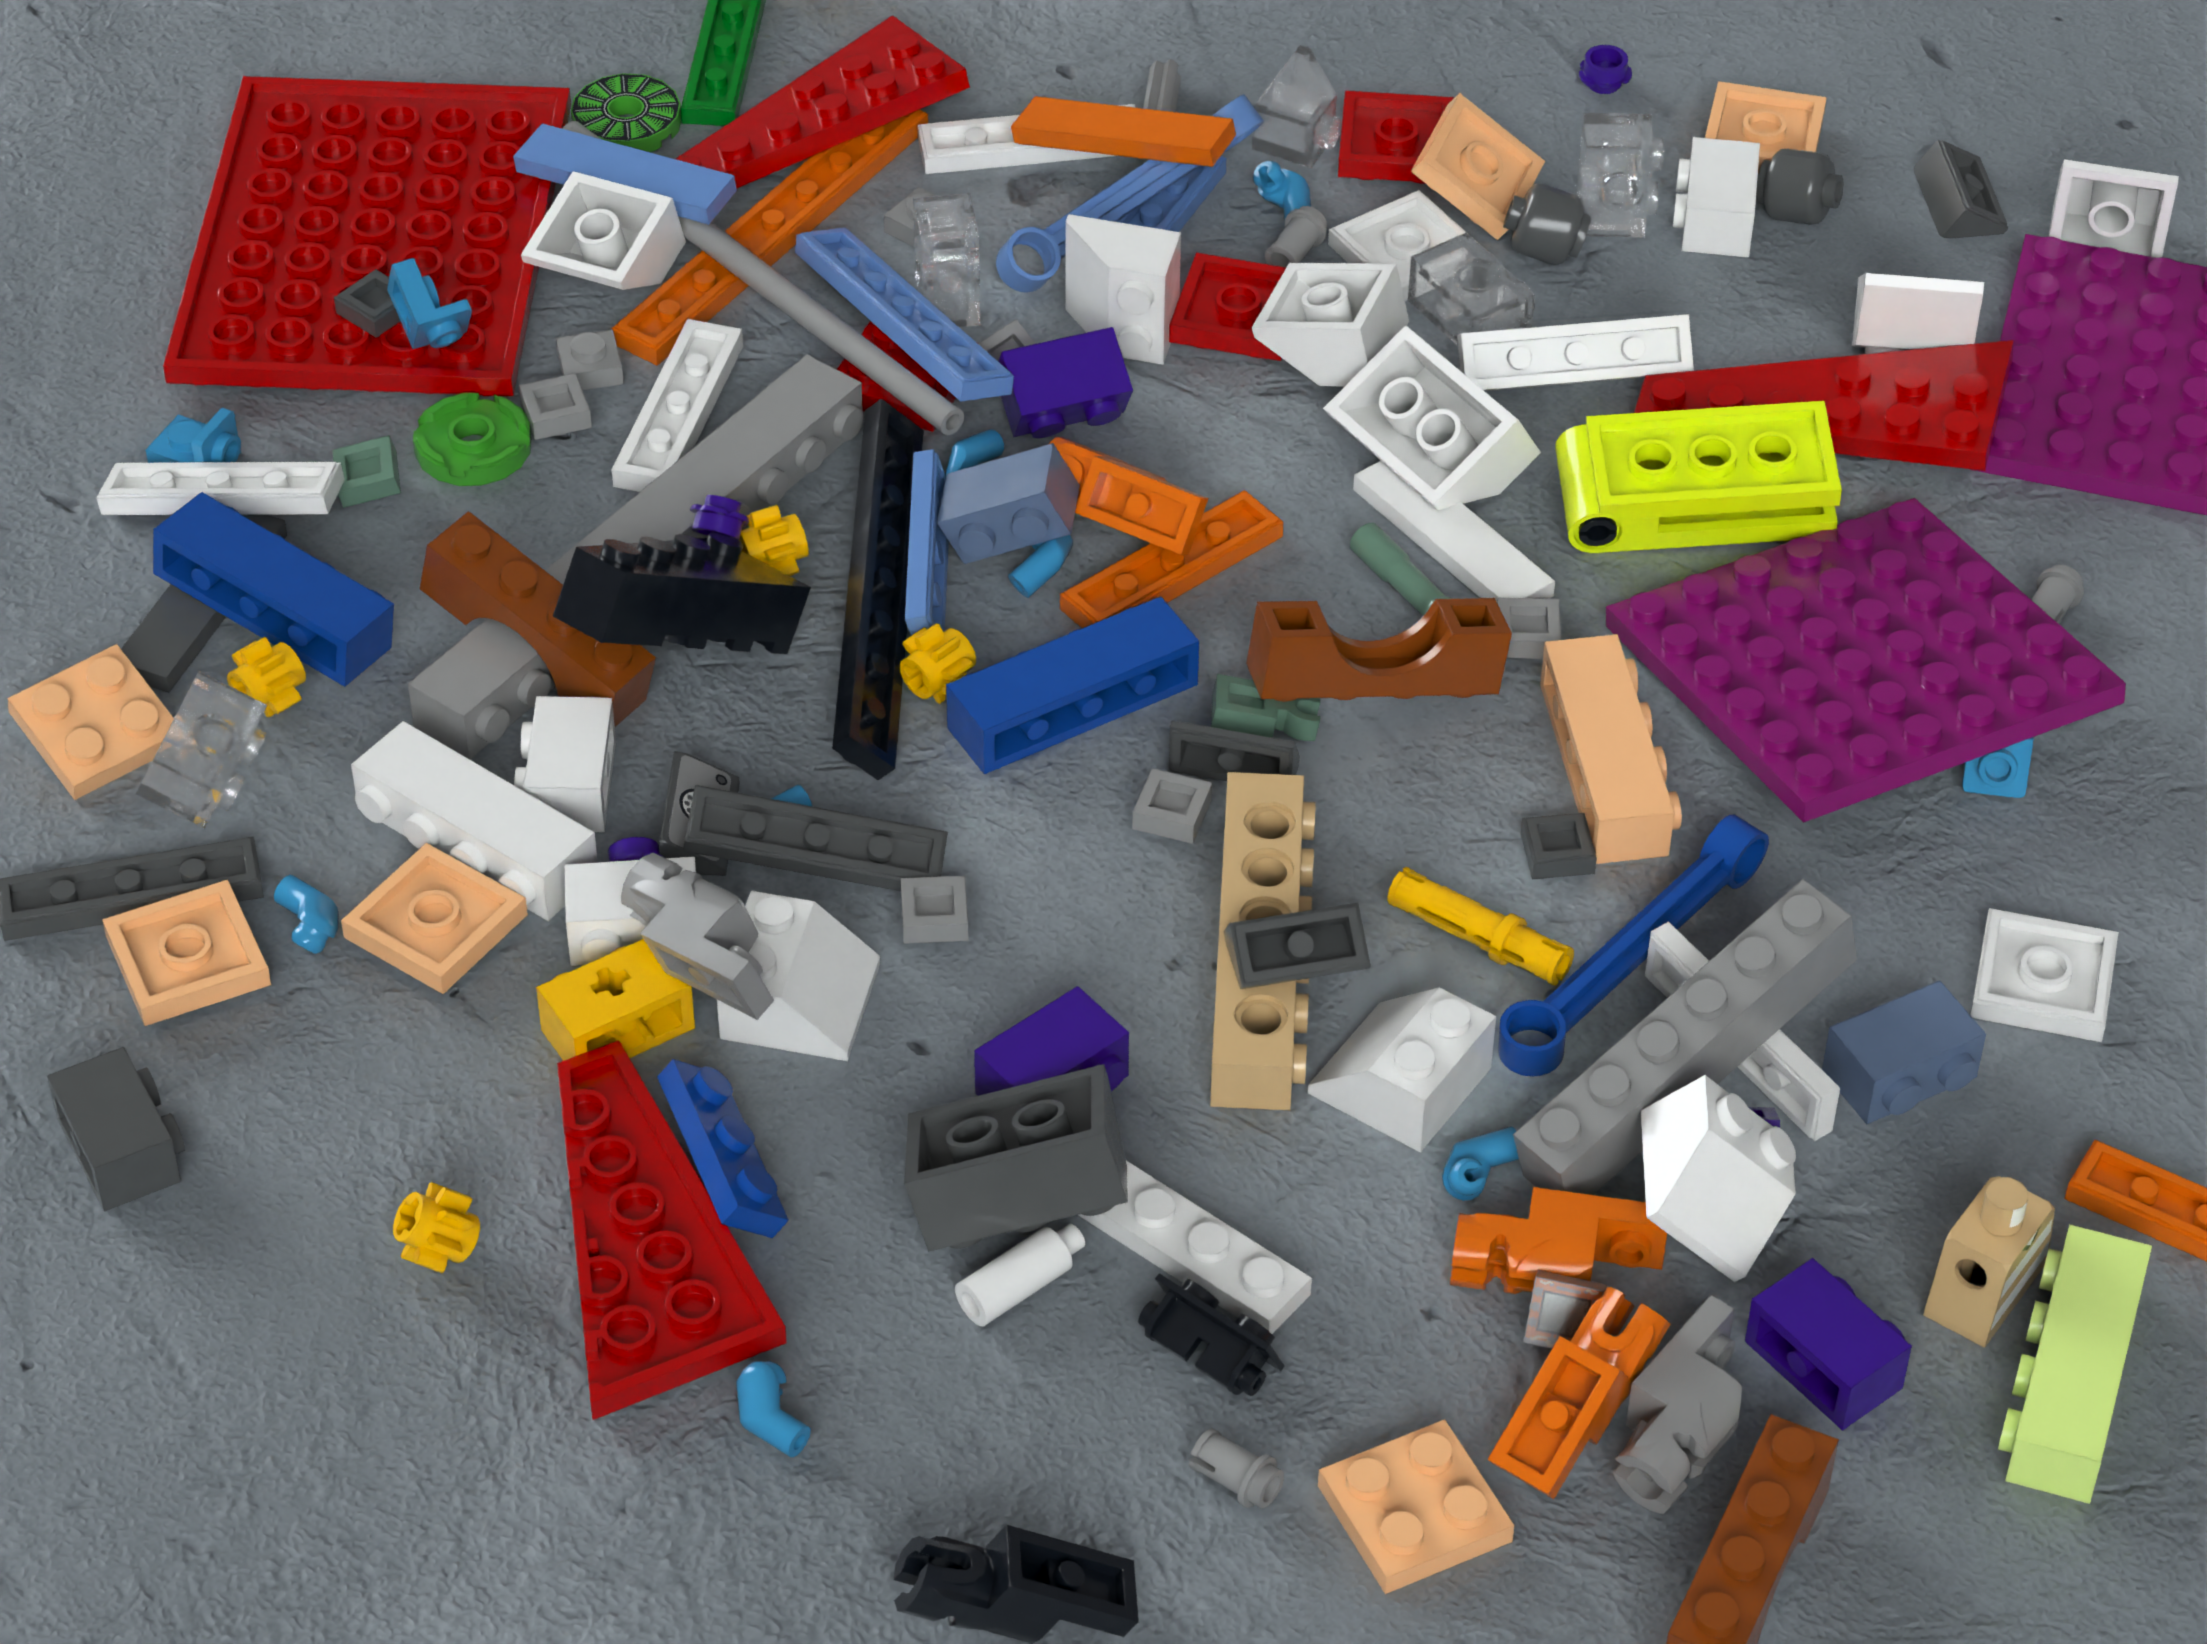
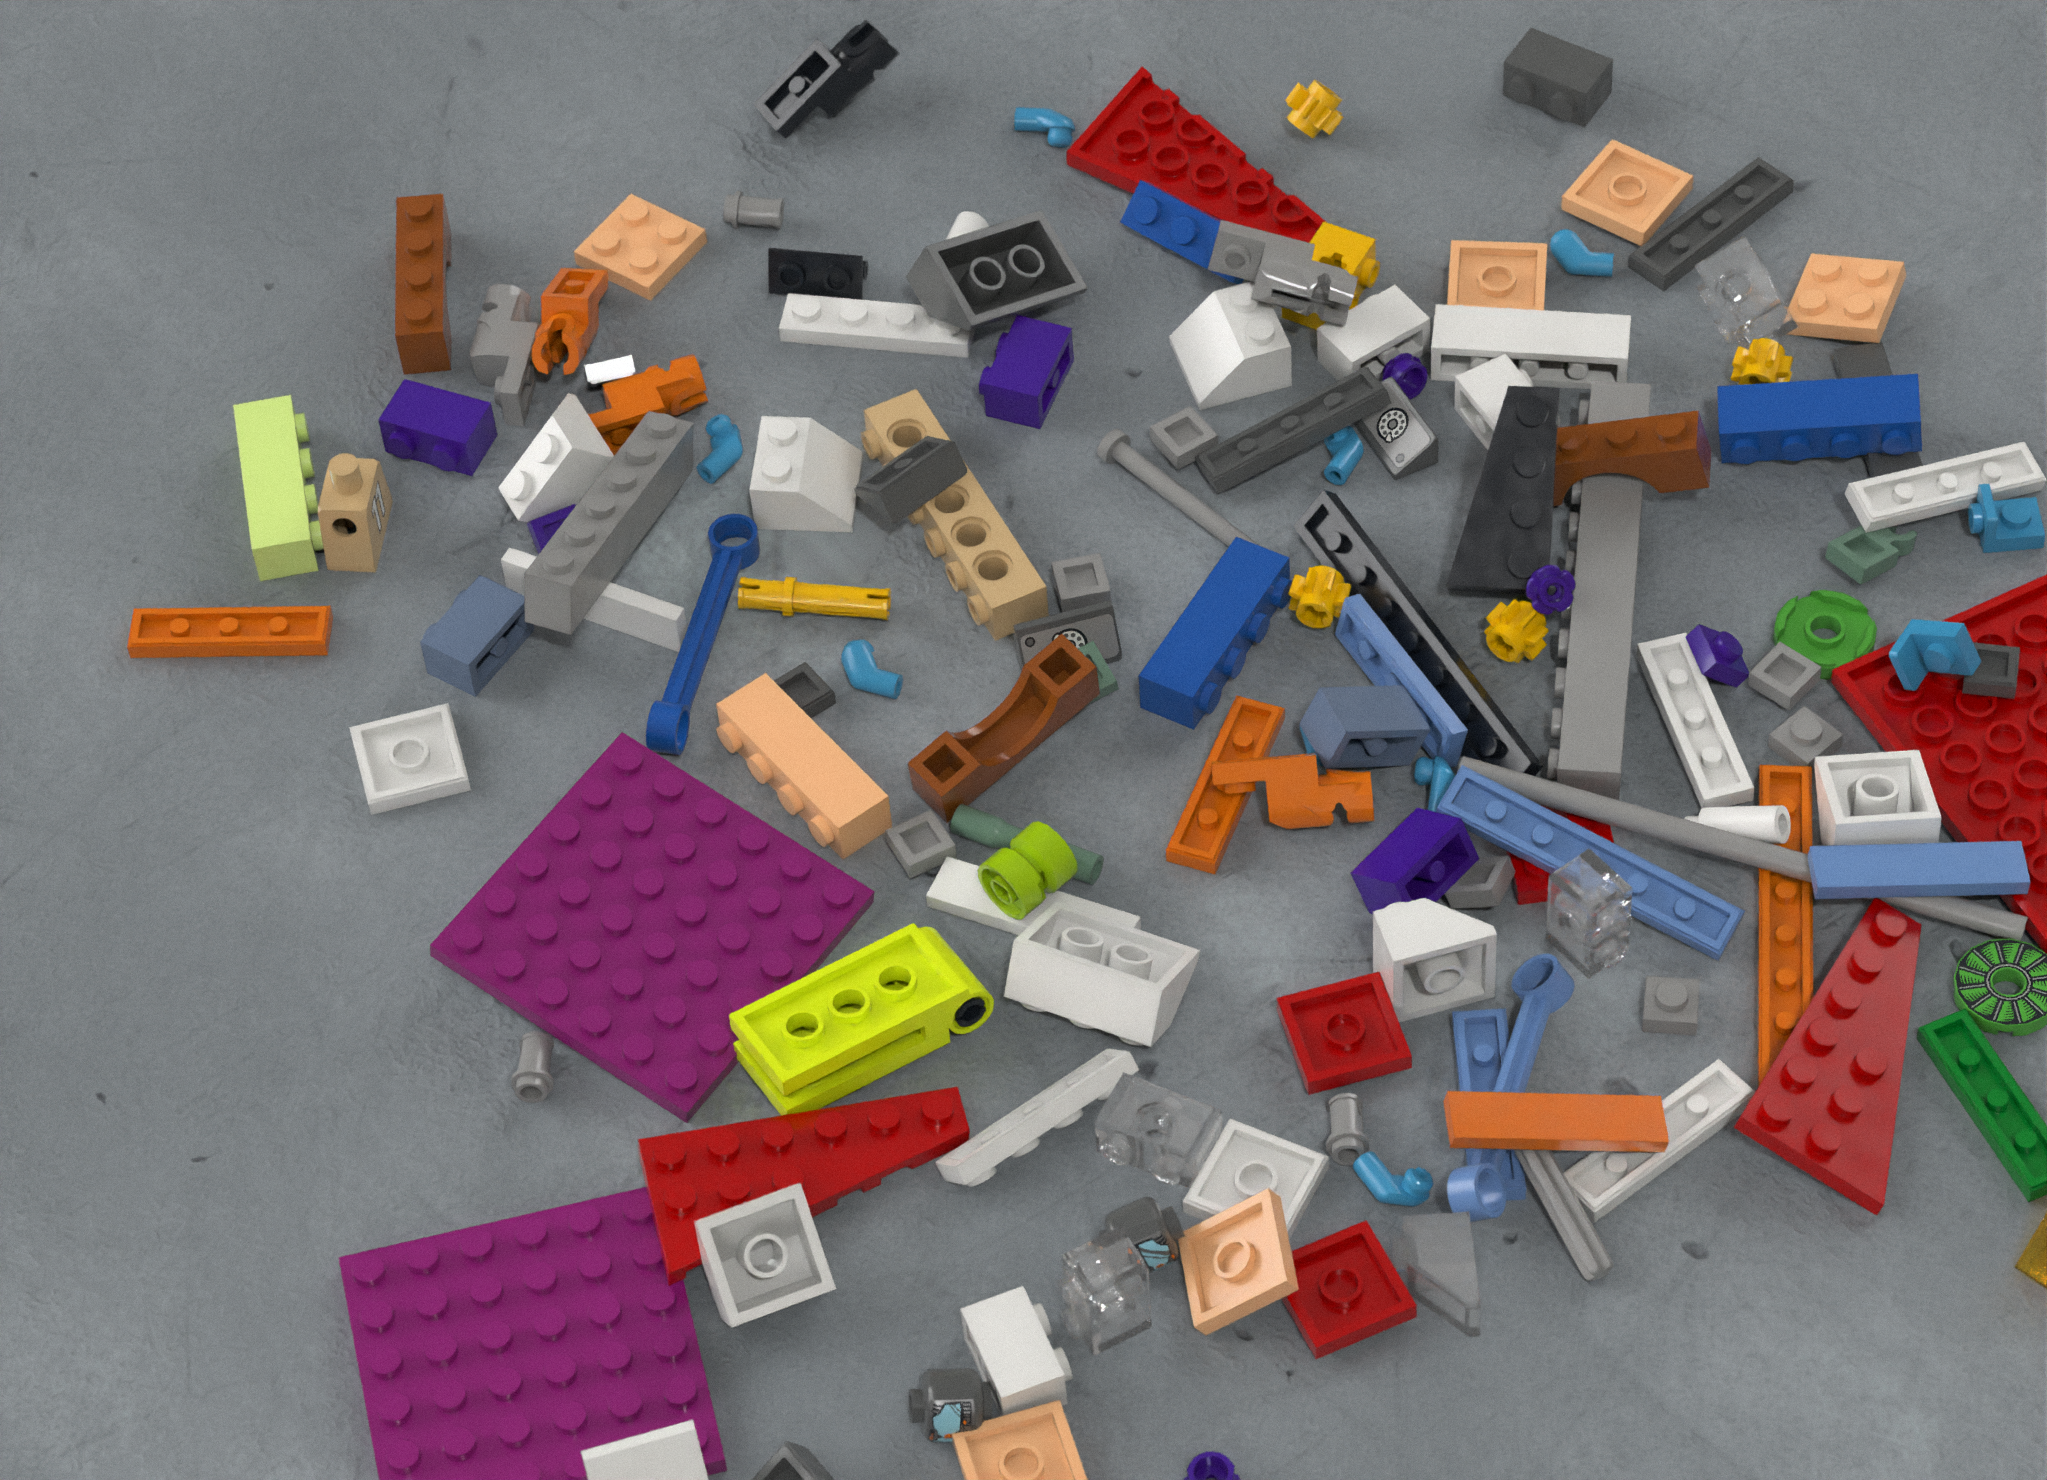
camera: 155 degrees right, 5 degrees up
(599, 443) = (1718, 655): none -> dark purple plate
(732, 295) = (1761, 823): none -> white cylinder
(1017, 938) = (1116, 448): none -> light grey bar
(1332, 317) = (1246, 1028): white slope -> none
(1458, 511) = (1033, 865): none -> lime wheel
(1471, 822) = (864, 673): none -> dark azure arm

